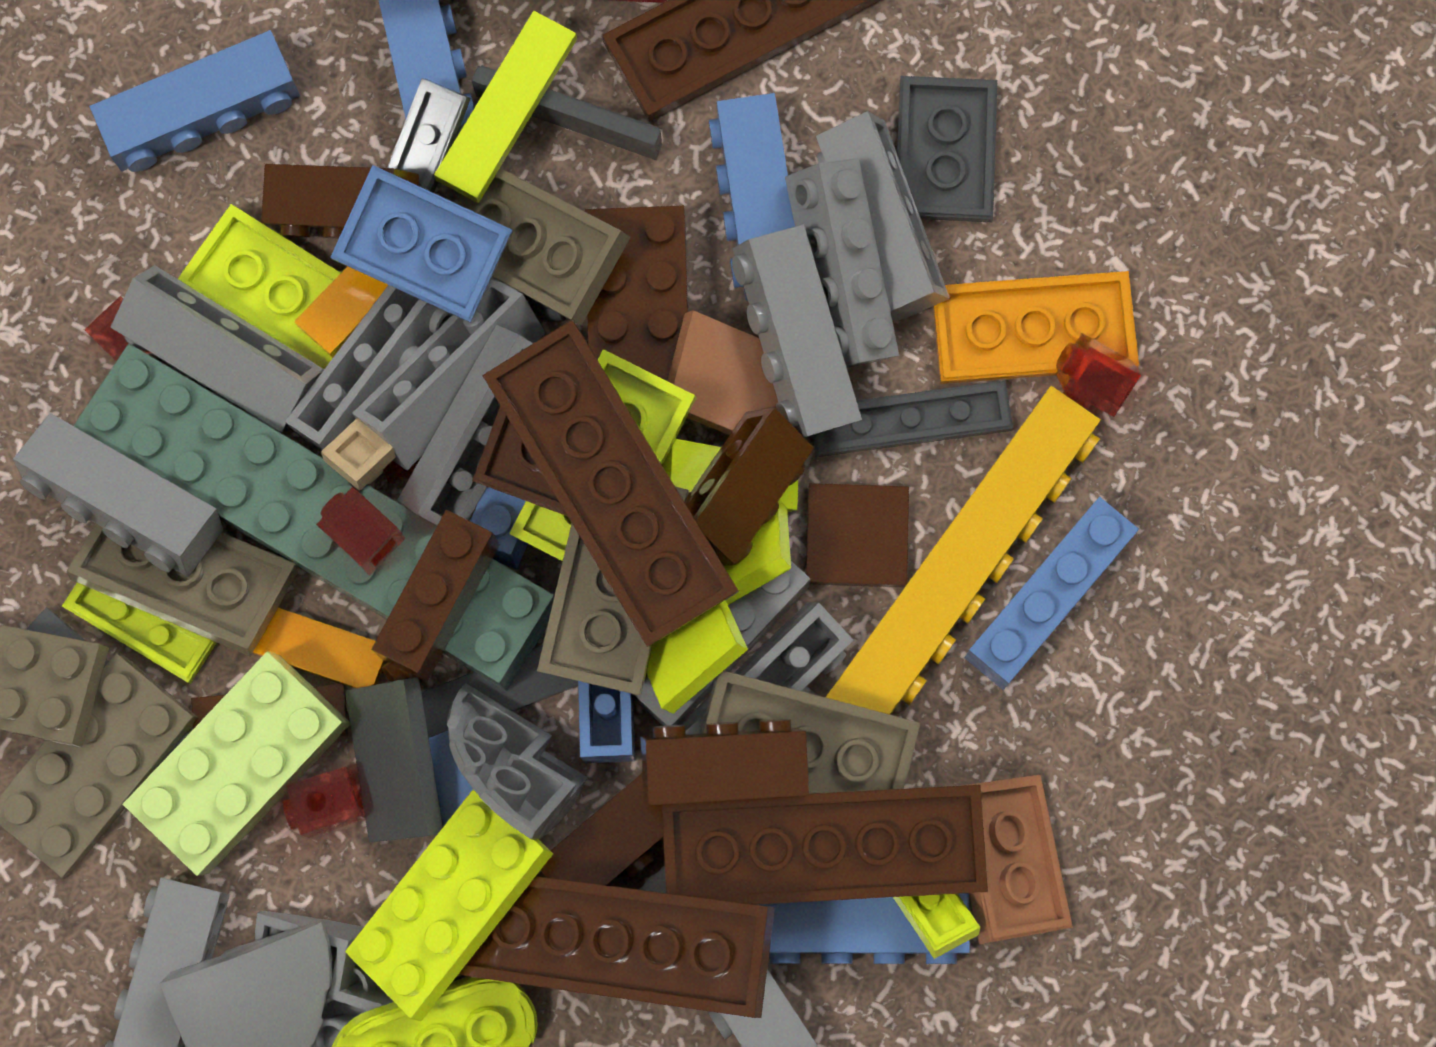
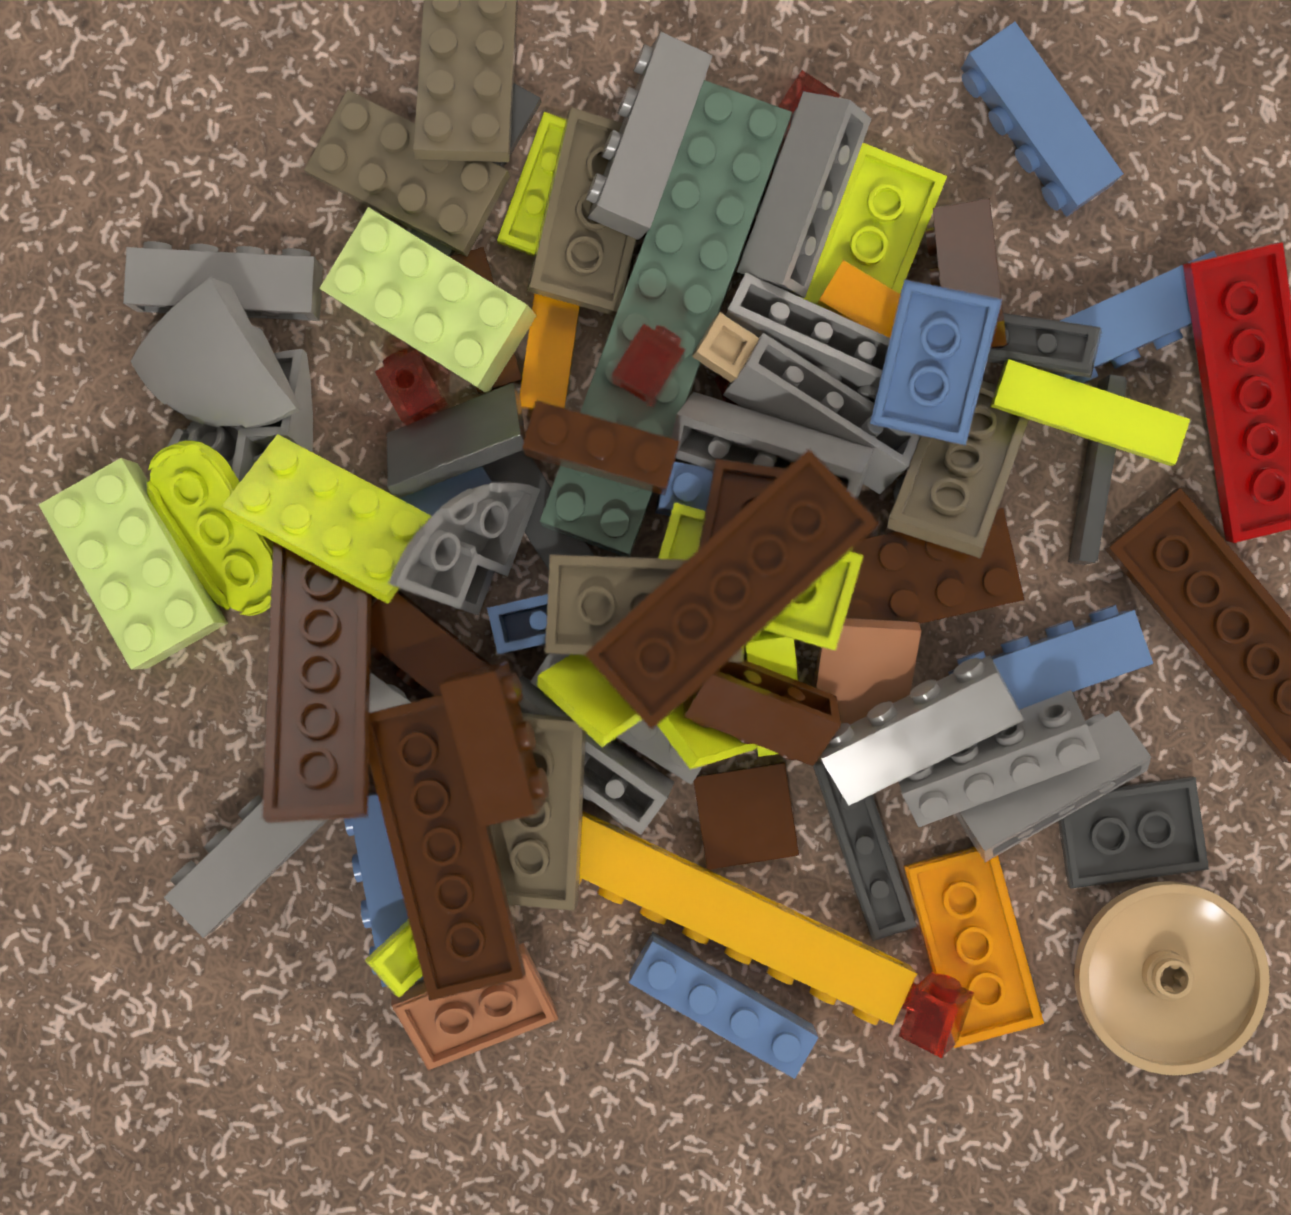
camera: 80 degrees right, 10 degrees up
(1099, 135) = (1171, 978): none -> tan dish

